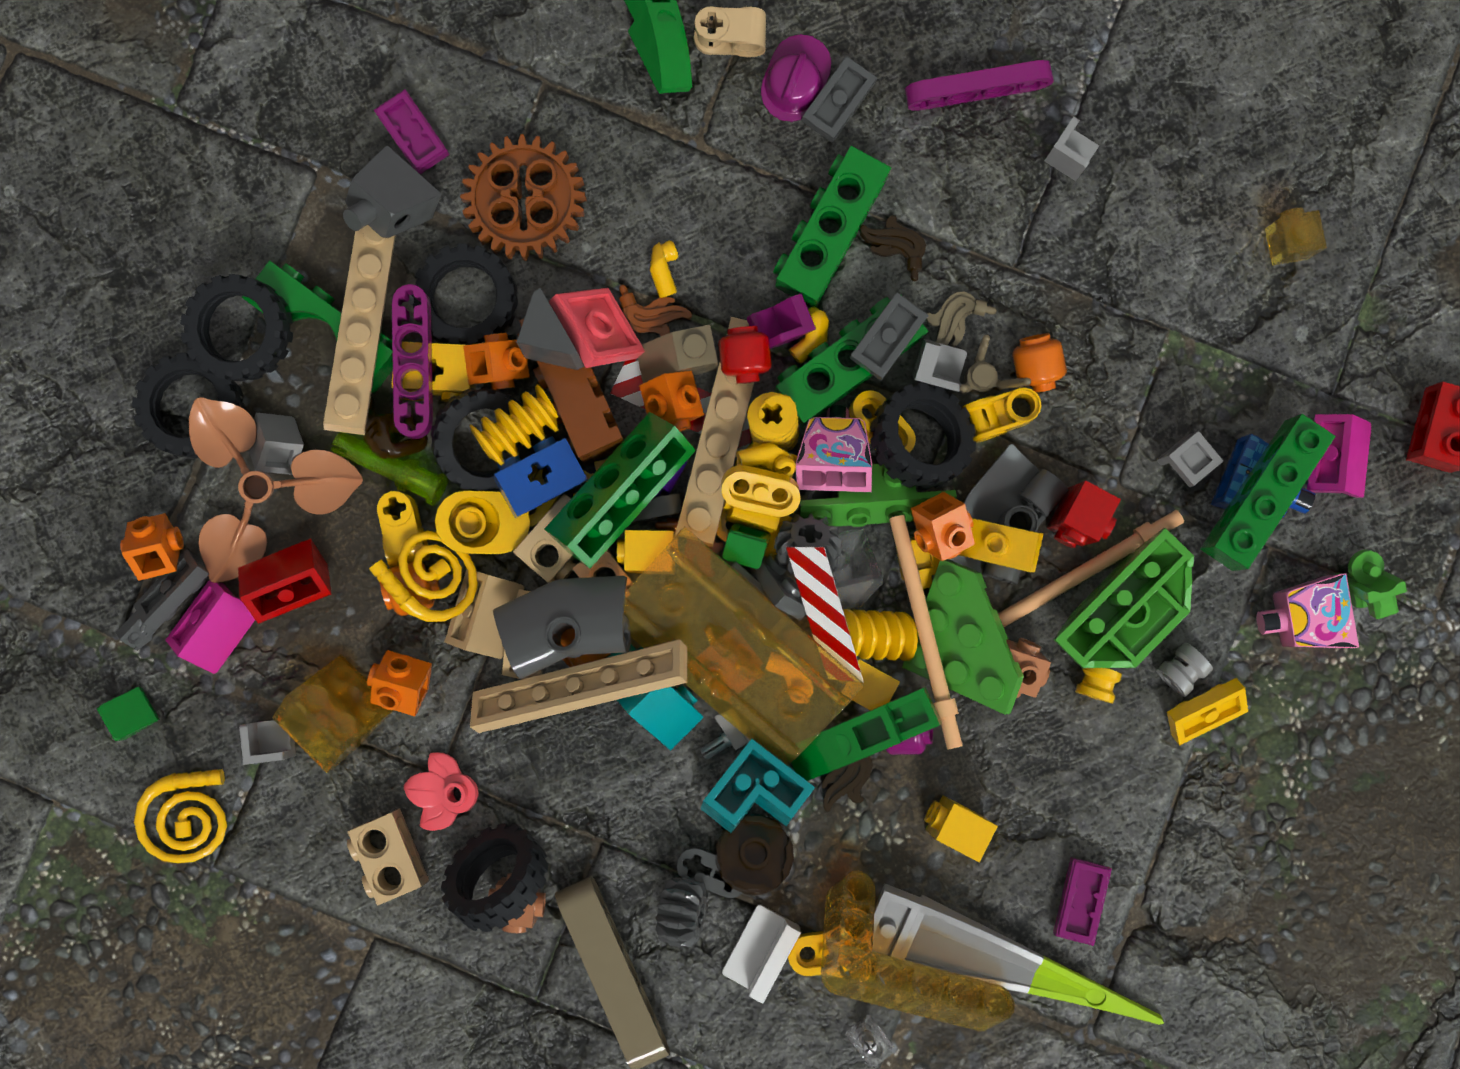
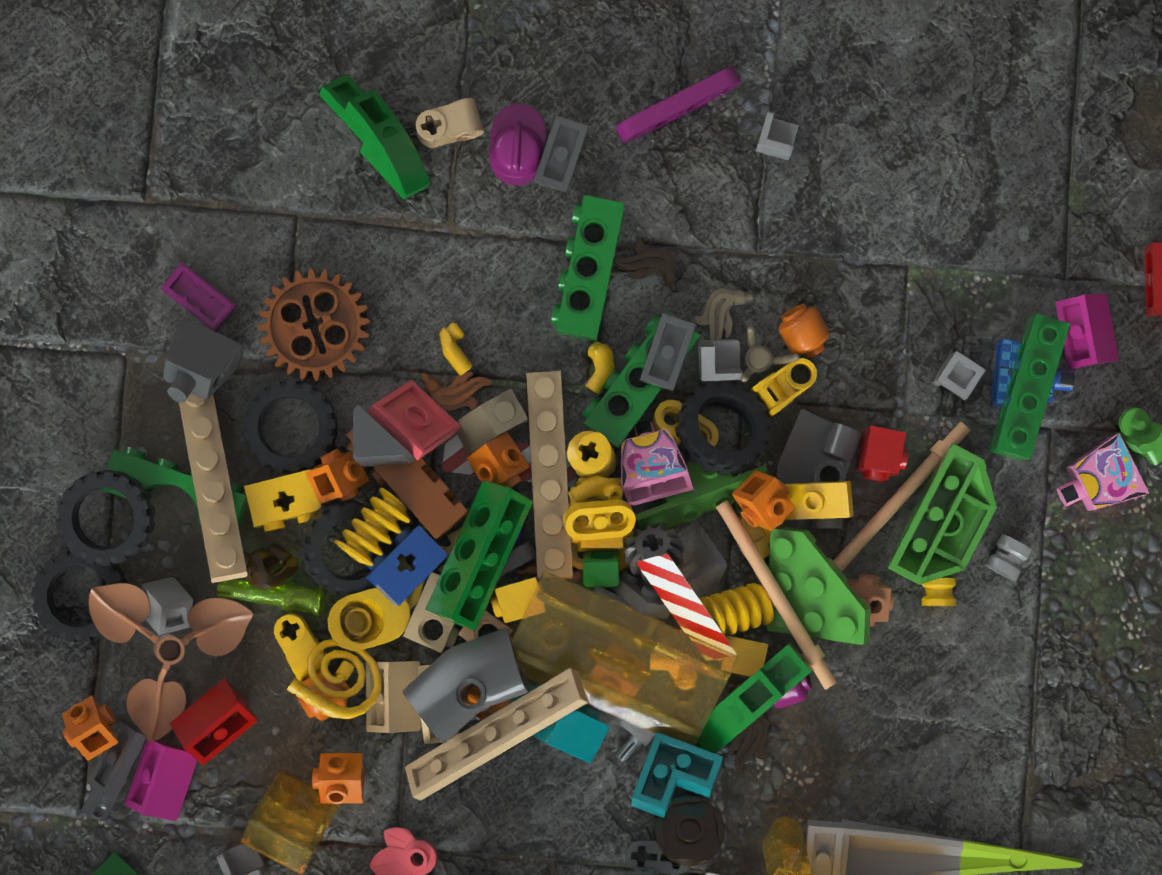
camera: 15 degrees left, 0 degrees up
(418, 361) = (261, 501): magenta beam -> none
(745, 354) = (549, 405): red head -> none
(784, 321) = (571, 366): magenta panel -> none
(959, 827) = (856, 752): yellow brick -> none
(1082, 901) = (981, 783): magenta plate -> none
(1207, 711) = (1039, 587): yellow plate -> none
(1295, 236) = (990, 153): clear yellow brick -> none

